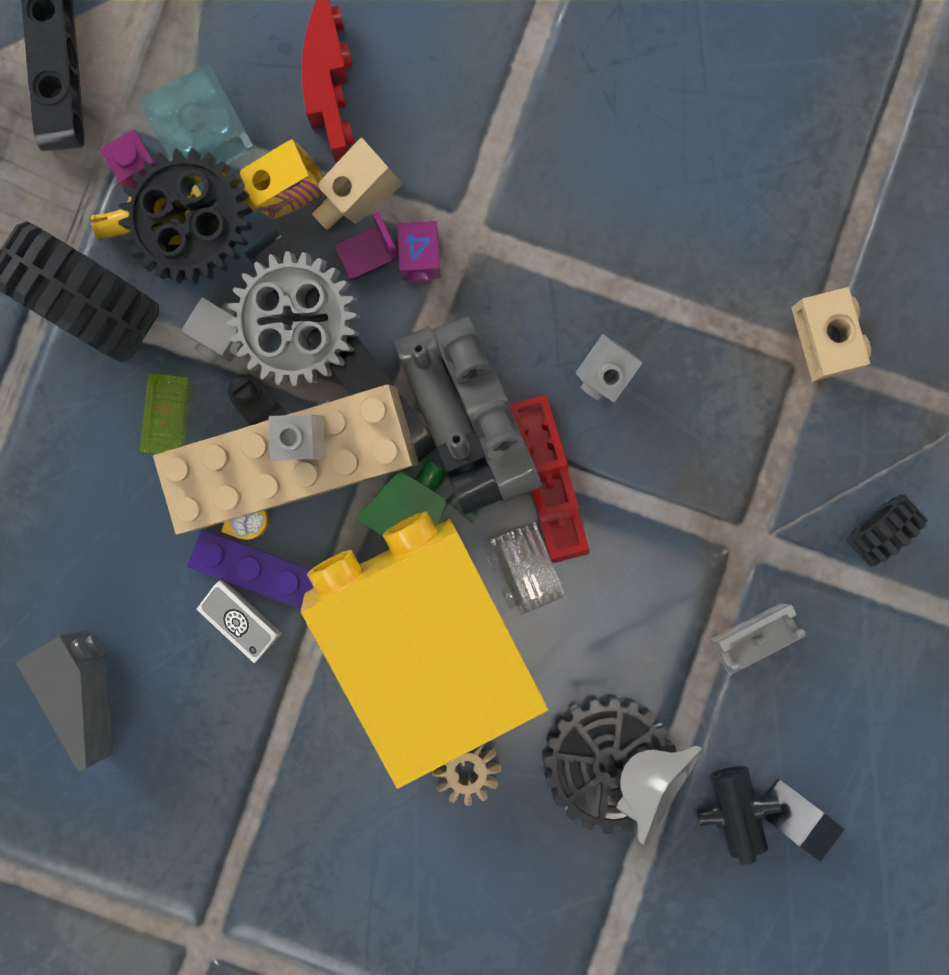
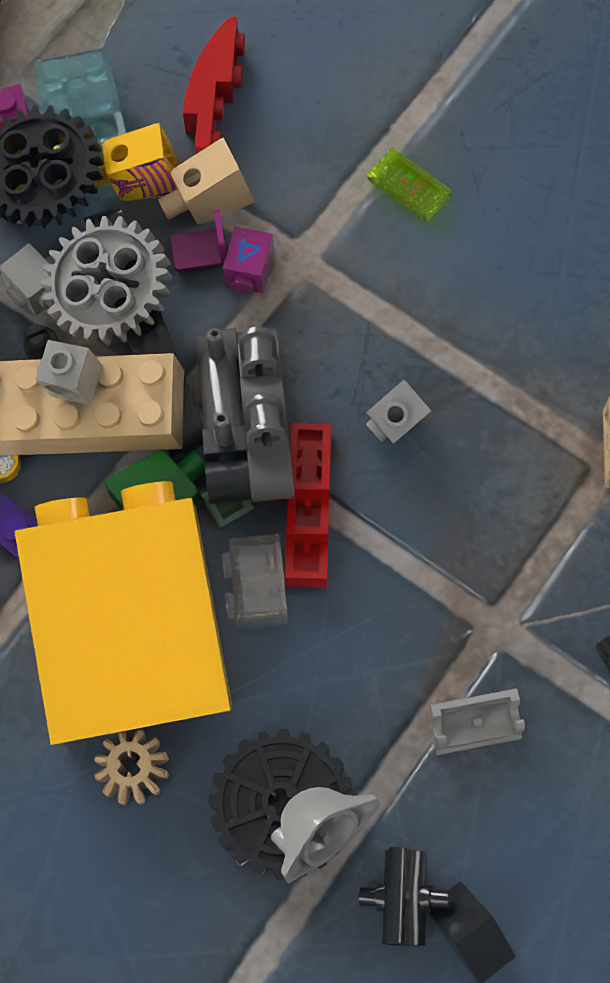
camera: 20 degrees right, 15 degrees down
(548, 125) = (409, 185): none -> clear neon green tile

